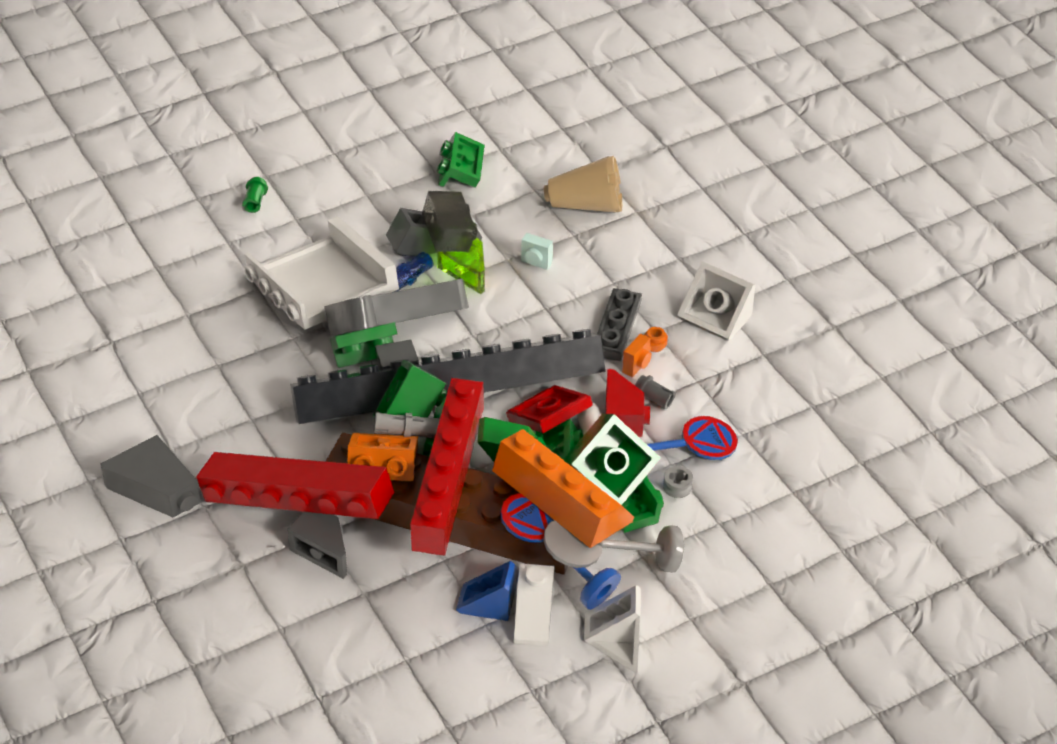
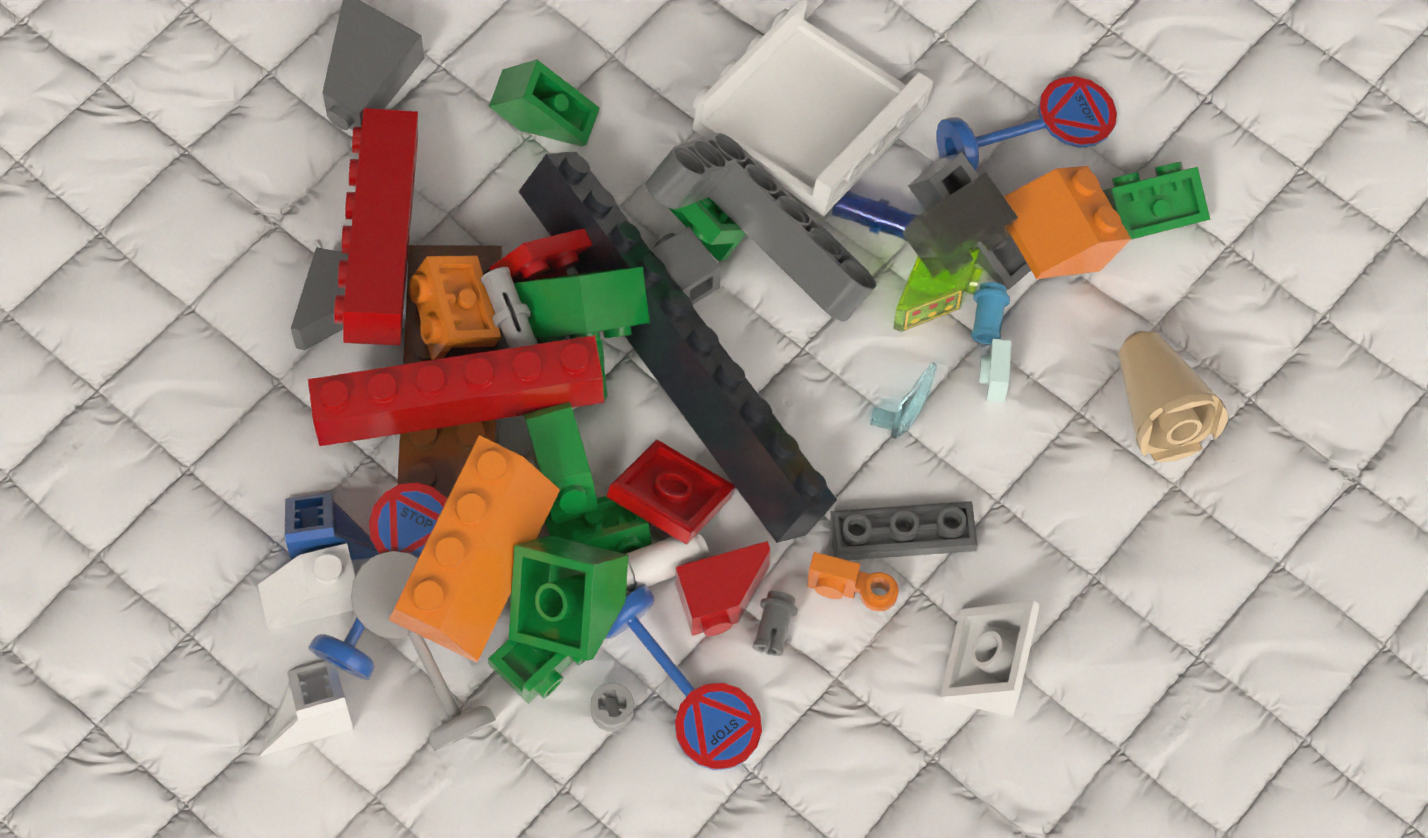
camera: 70 degrees right, 20 degrees up
(238, 398) = (543, 104): none -> green slope
(363, 410) = (545, 256): none -> red bracket
(382, 179) = (1069, 108): none -> blue piece
(472, 182) = (1065, 223): none -> orange slope
(497, 246) = (990, 301): none -> dark azure pin
(544, 301) = (910, 406): none -> clear light blue bar

